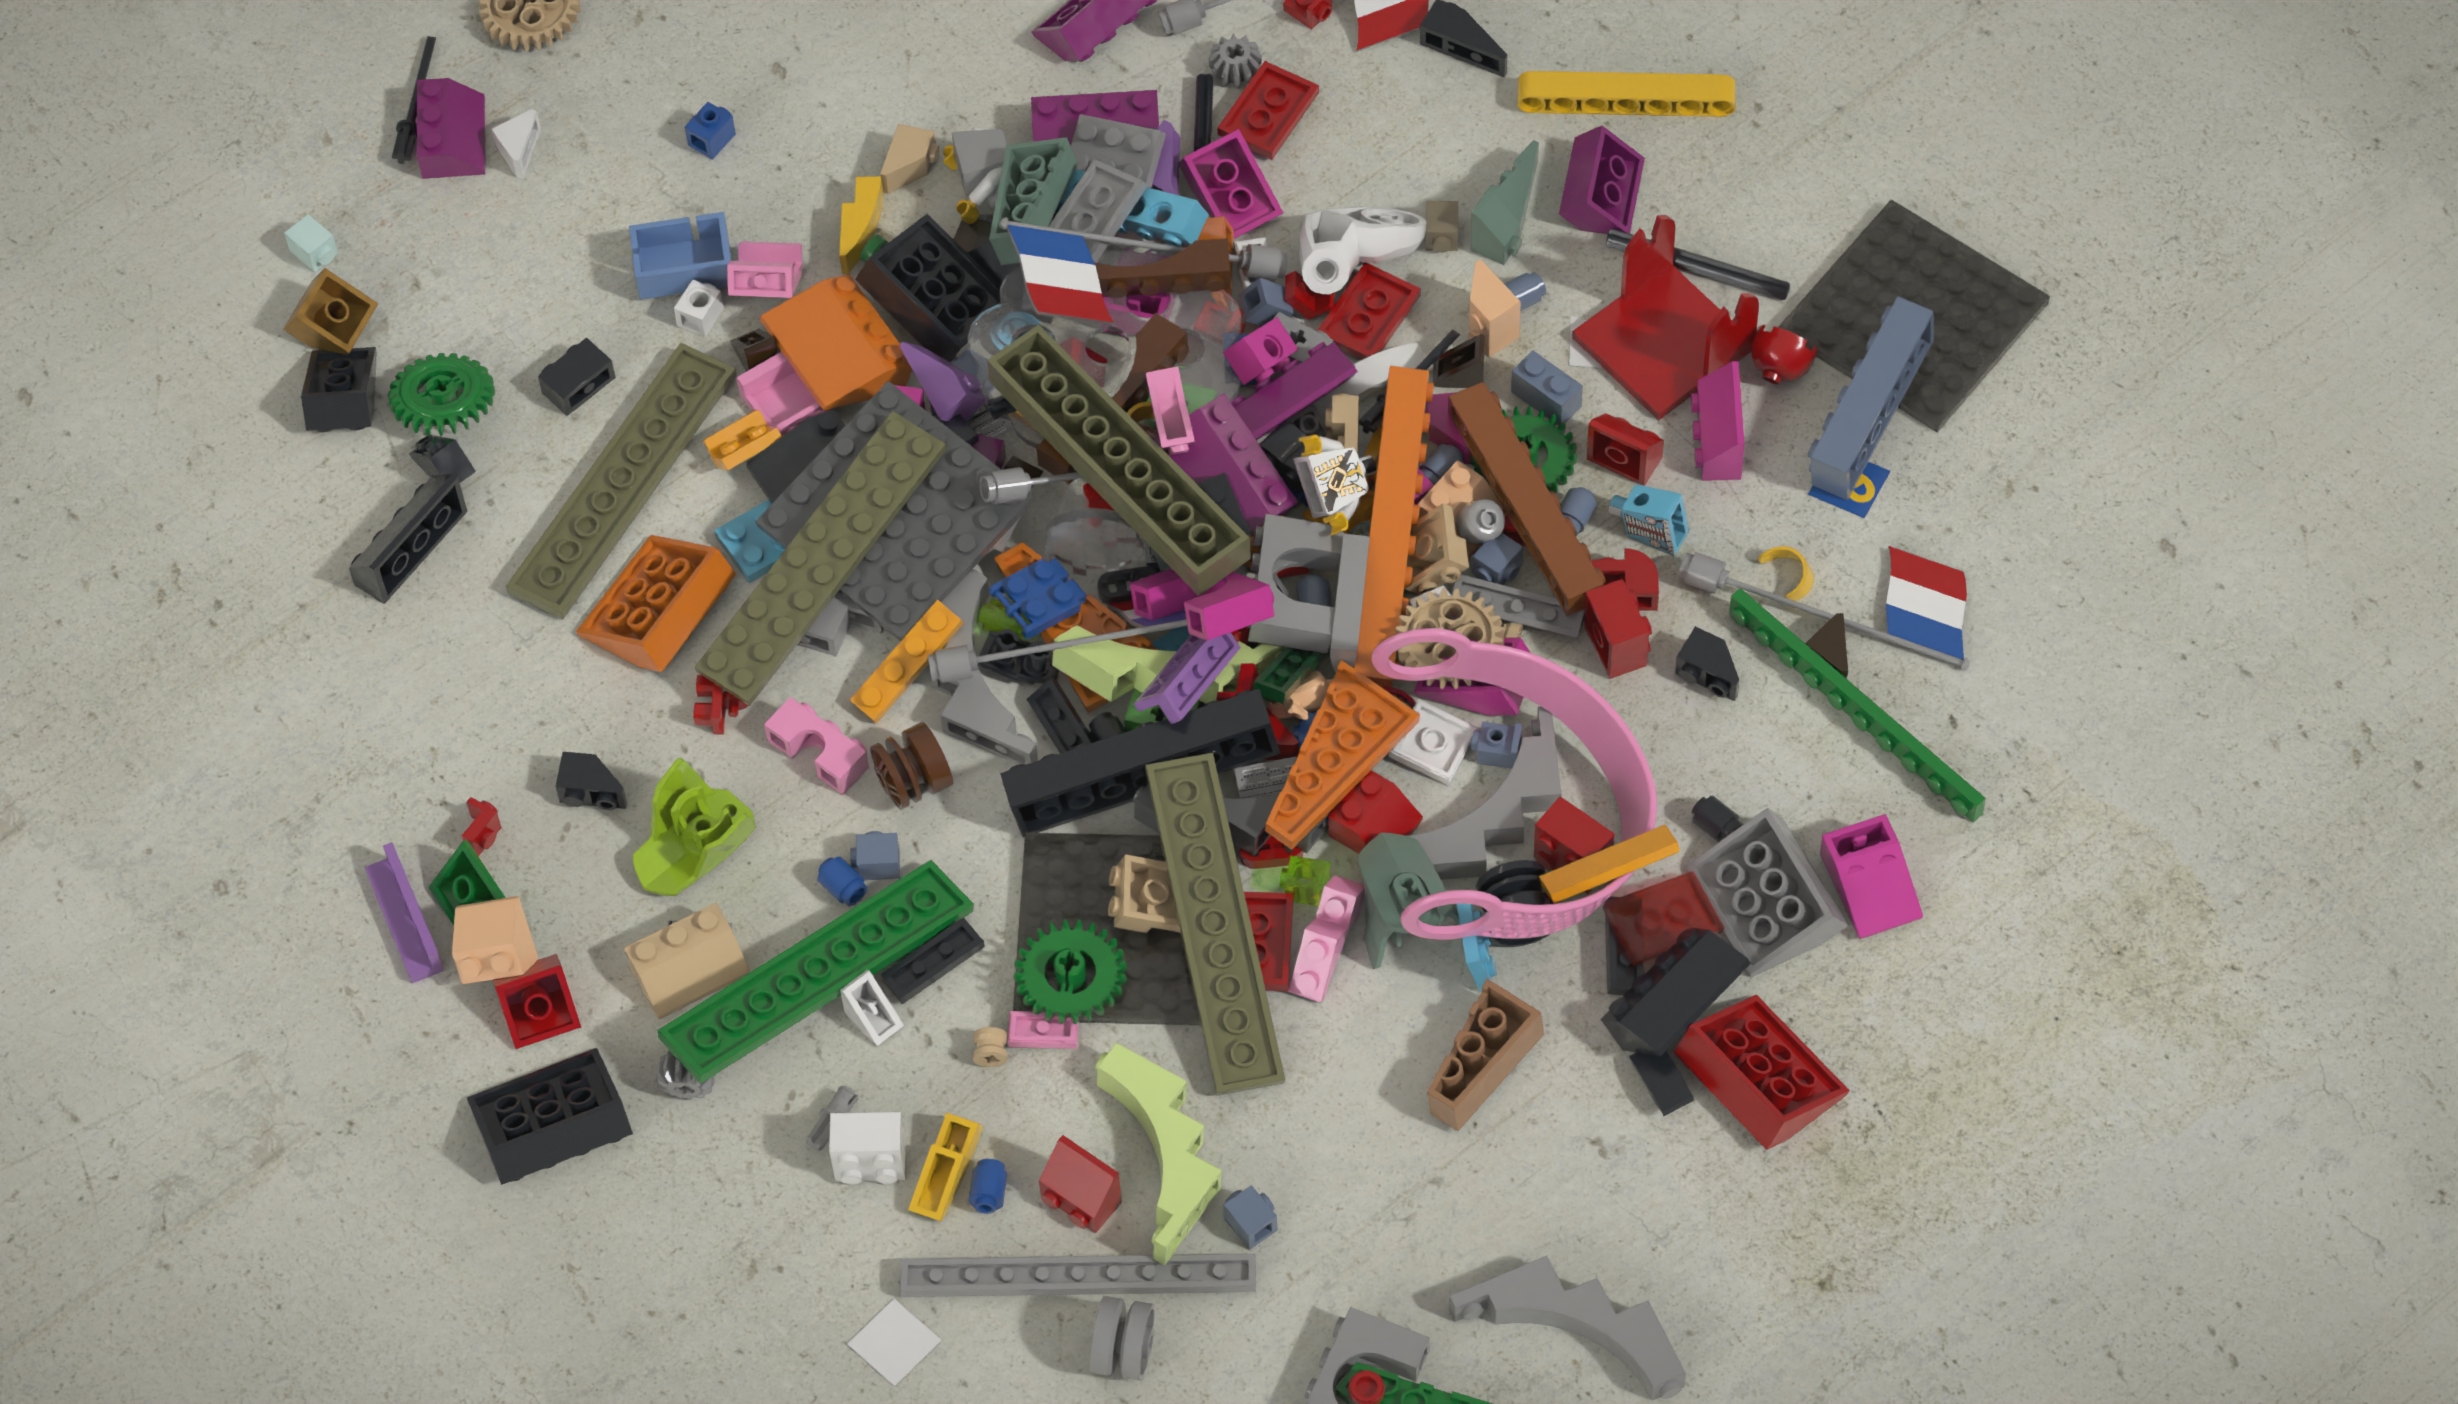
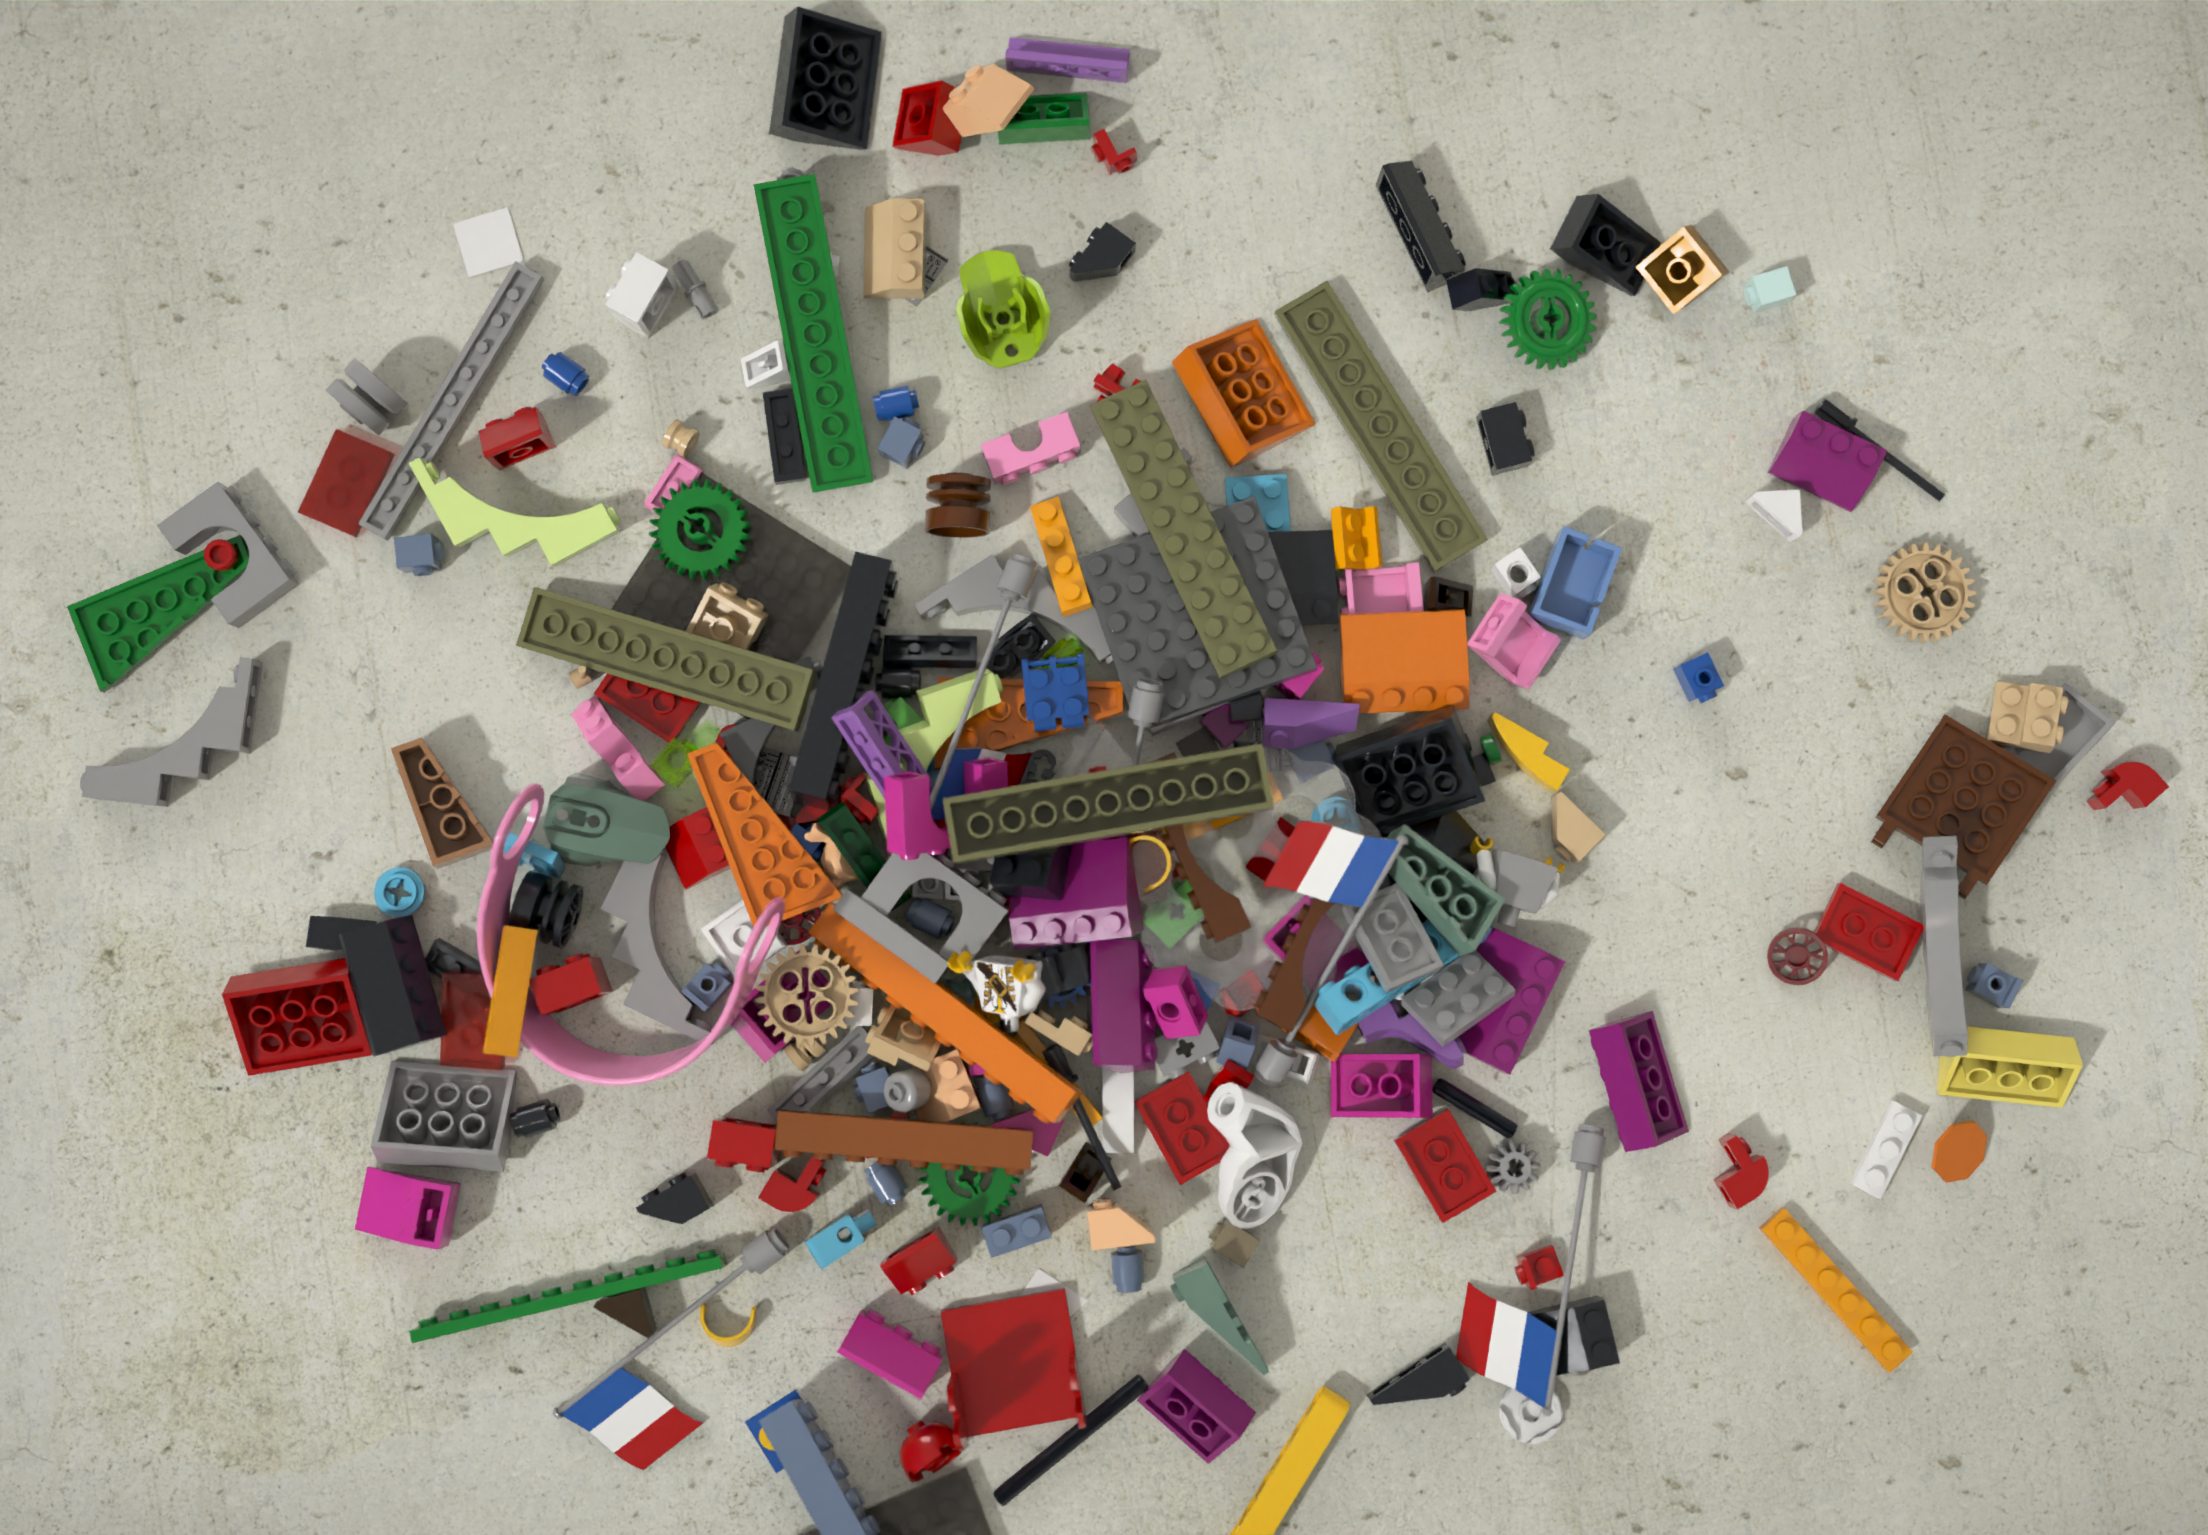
camera: 115 degrees right, 25 degrees up
(945, 1166) = (601, 352): yellow slope -> none
(1170, 410) = (1130, 875): bright pink arch -> none
(1221, 1331) = (345, 482): none -> clear red tile
(1278, 1010) = (580, 677): none -> tan hand
(1596, 1042) = (393, 879): none -> medium azure gear

